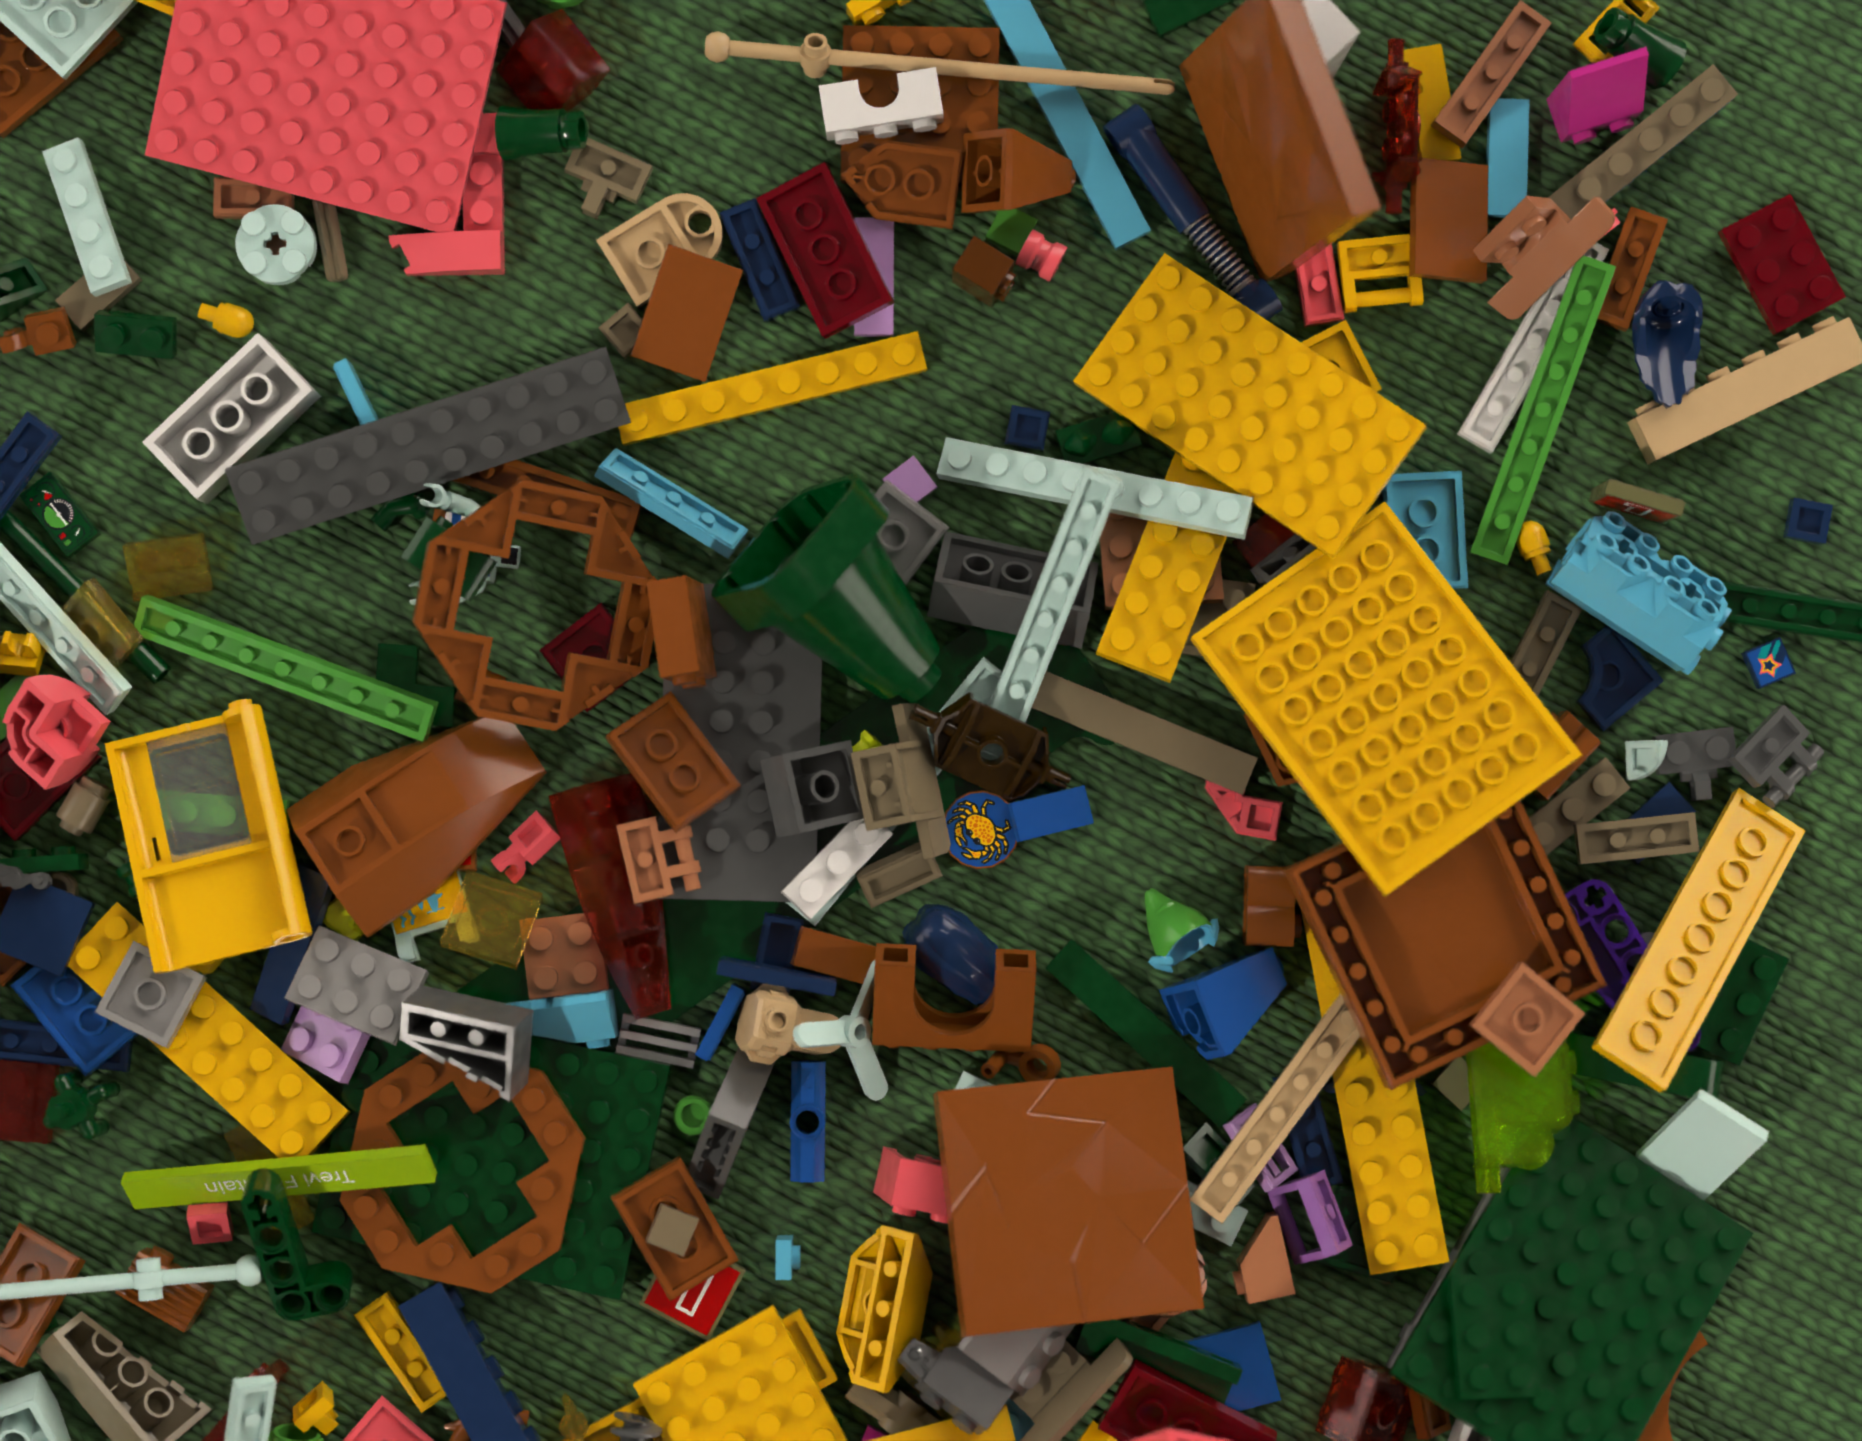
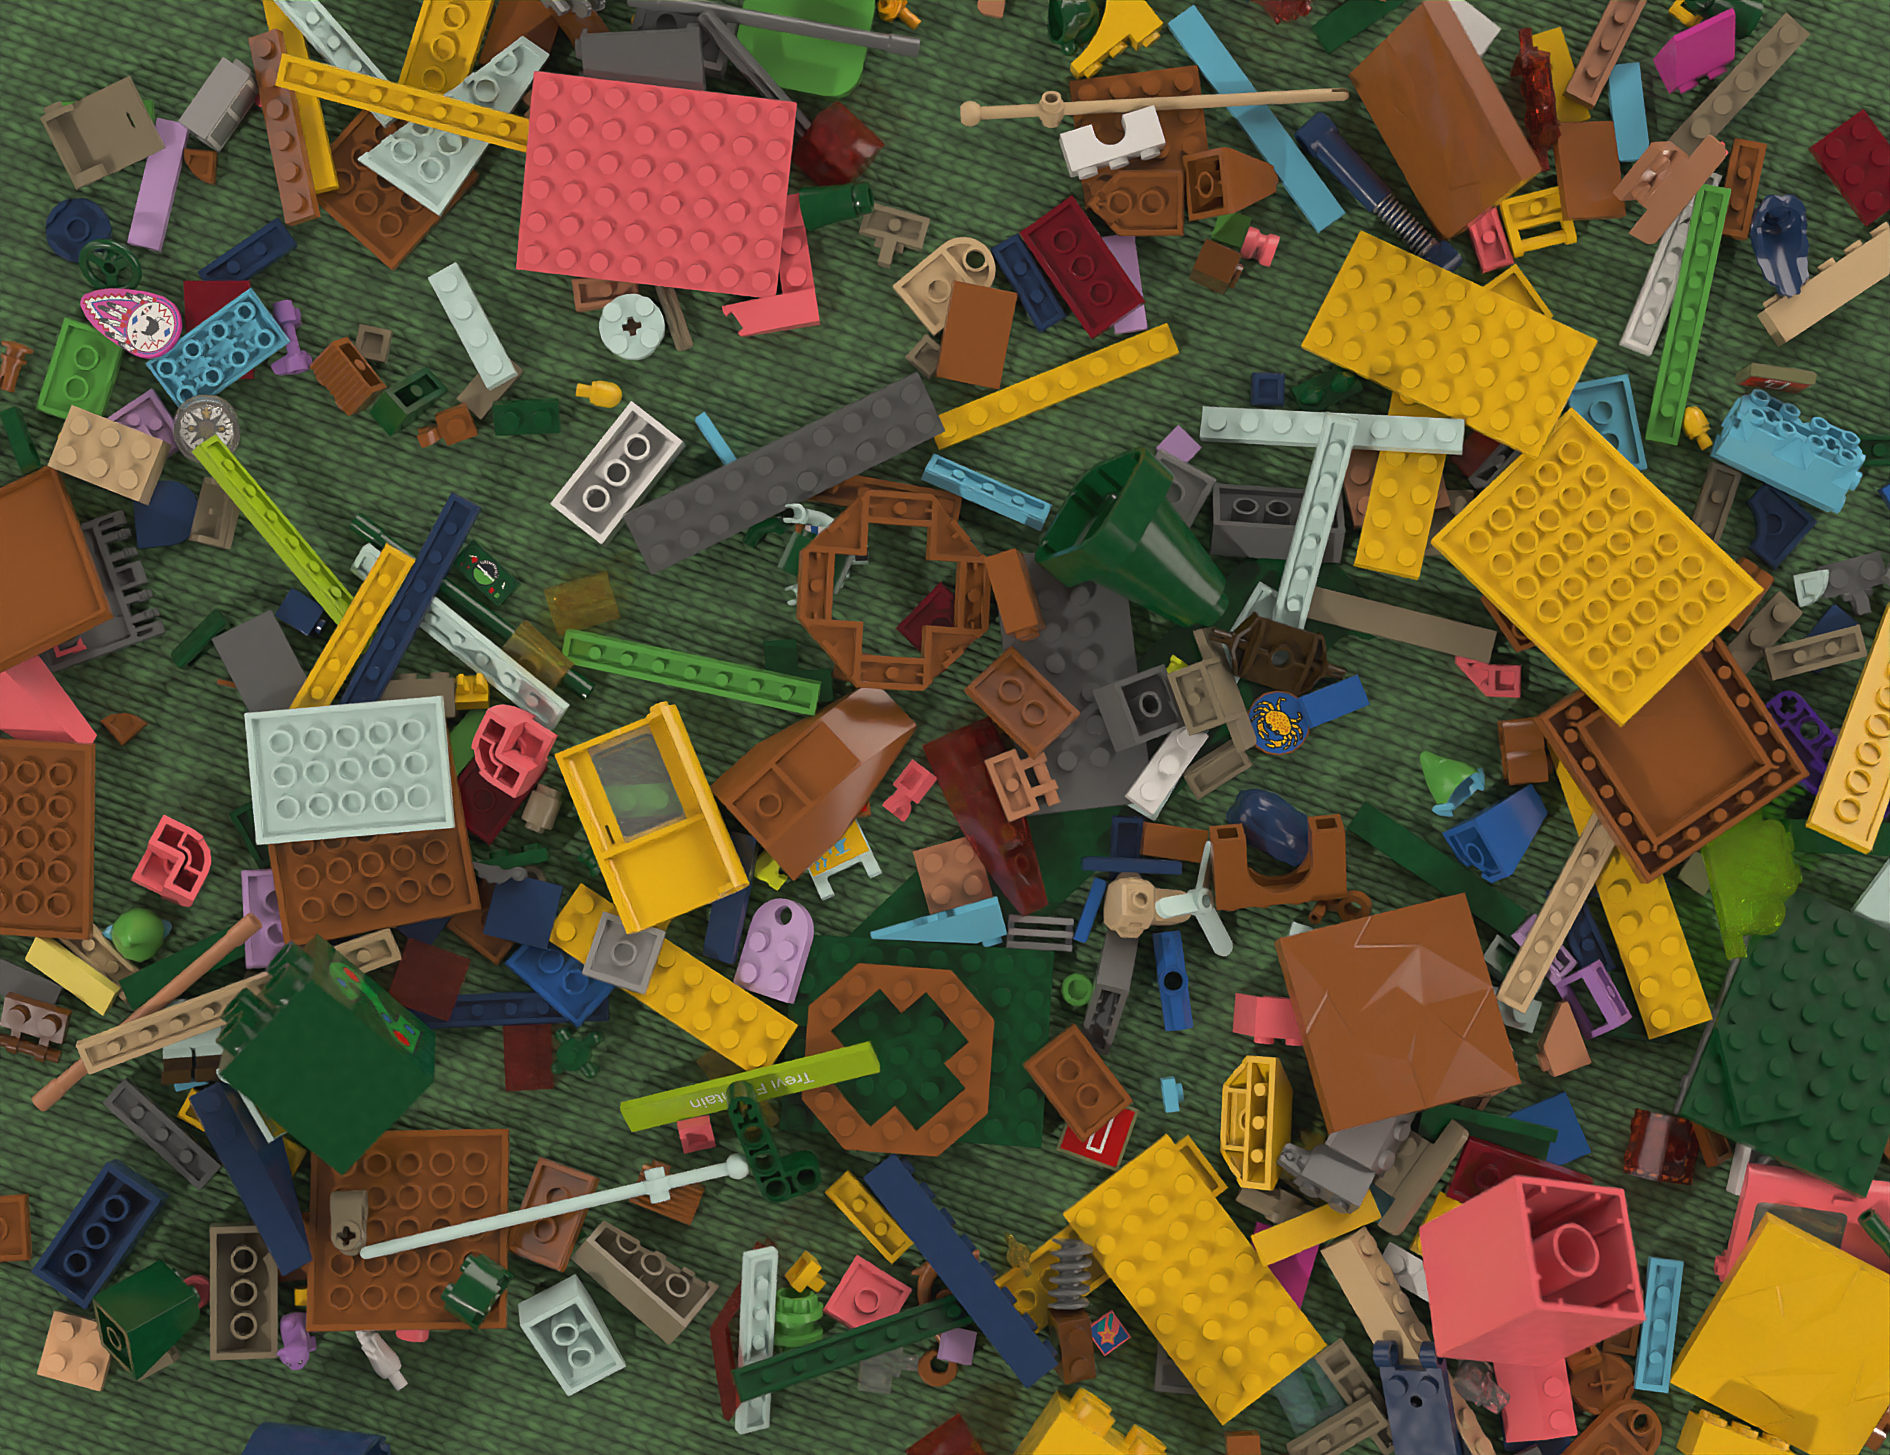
camera: 10 degrees left, 0 degrees up
(355, 984) = (791, 921): light grey plate -> none
(473, 1034) = (893, 946): dark grey wedge -> none
(491, 919) = (891, 853): clear yellow tile -> none
(672, 1229) = (1077, 1083): dark tan tile -> none
(1526, 1019) = (1749, 810): nougat plate -> none

